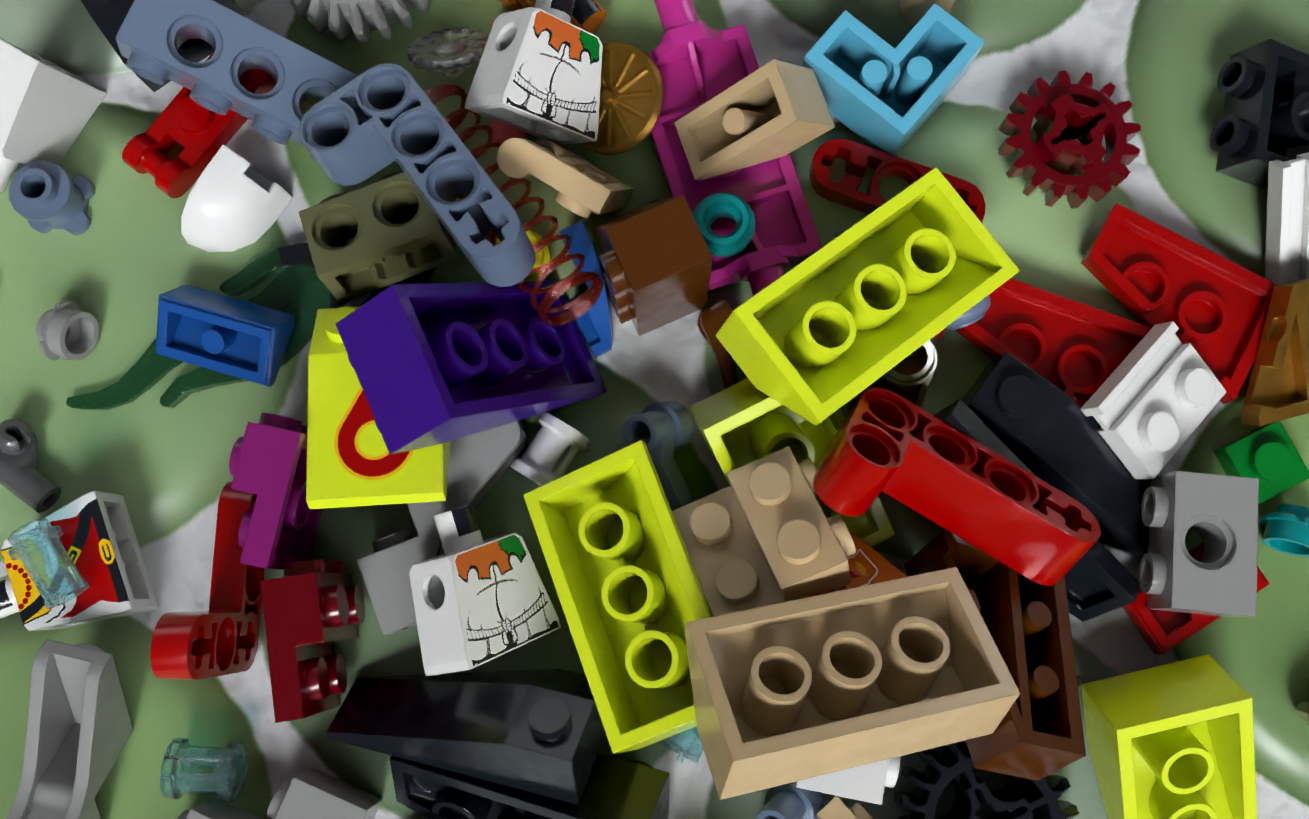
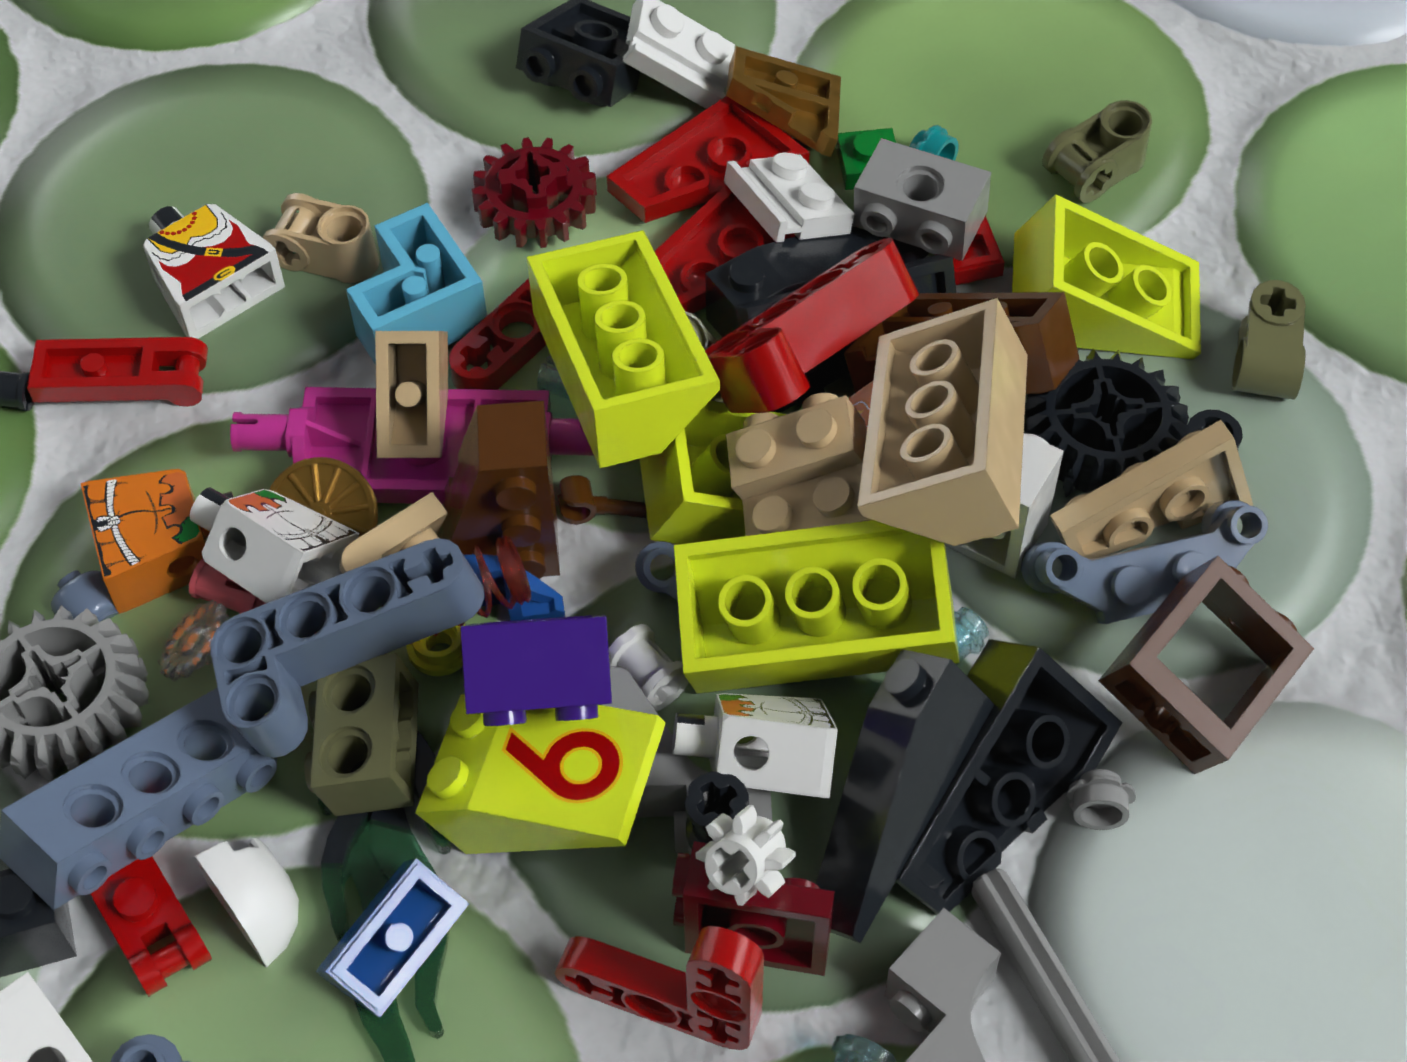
camera: 75 degrees left, 25 degrees down
(274, 467) = (587, 890): magenta plate -> none
(282, 632) = (745, 855): none -> white gear
(351, 583) = (724, 795): none -> black bush

